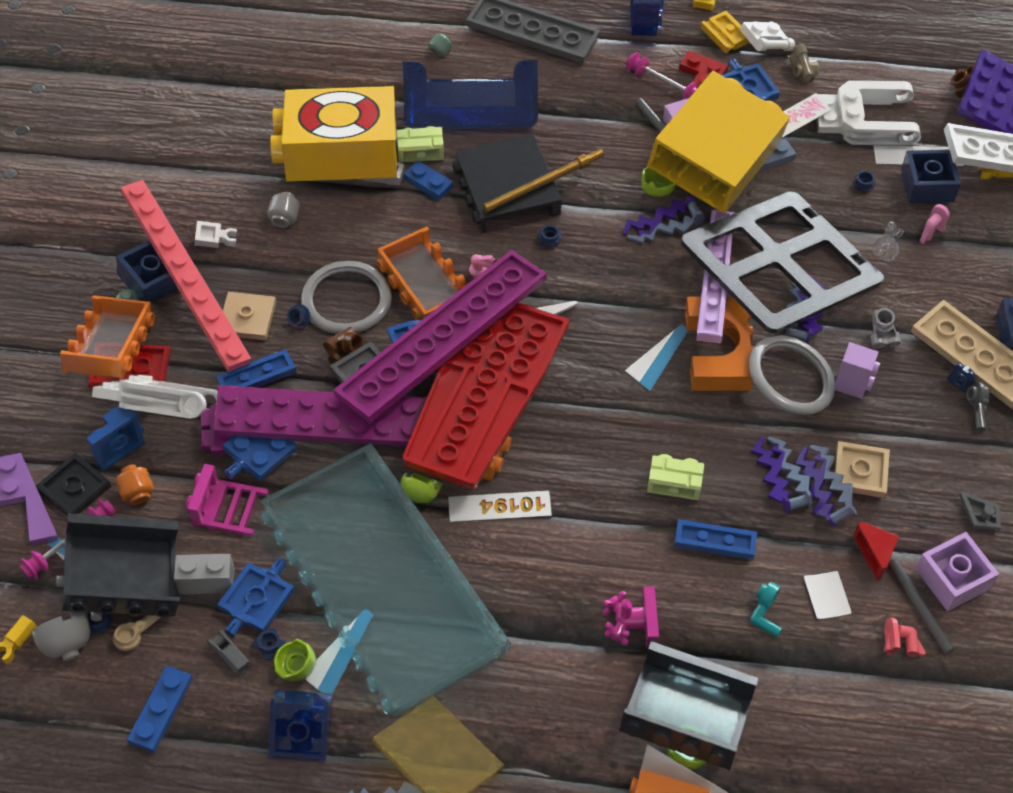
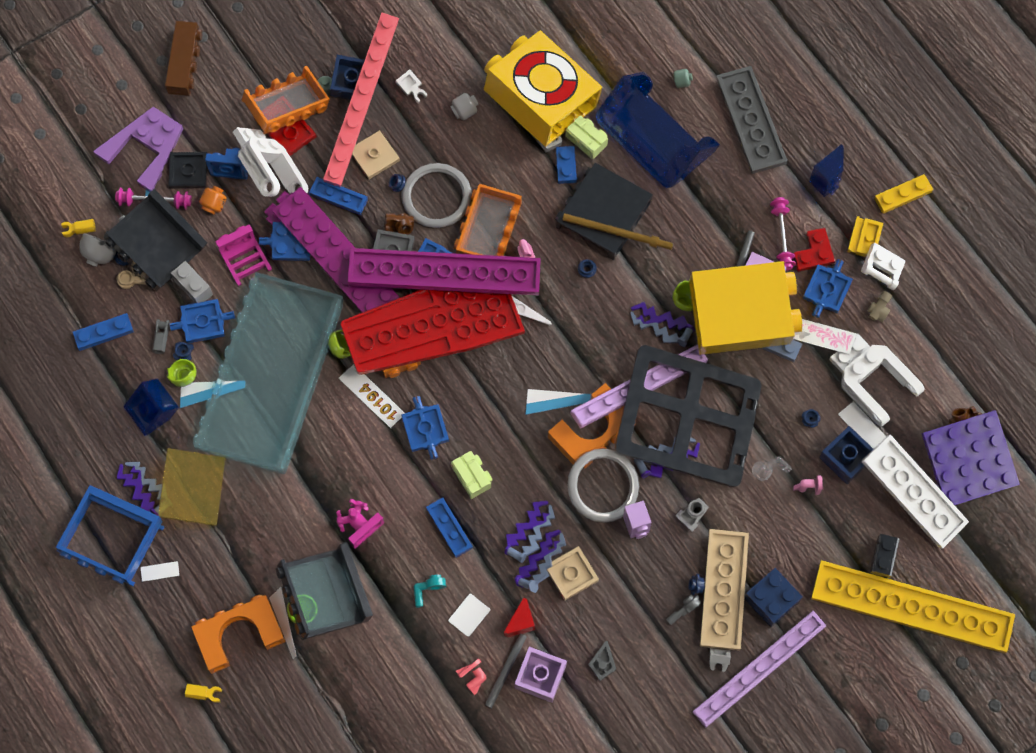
camera: 50 degrees right, 15 degrees up
(584, 481) = (425, 427): none -> blue plate

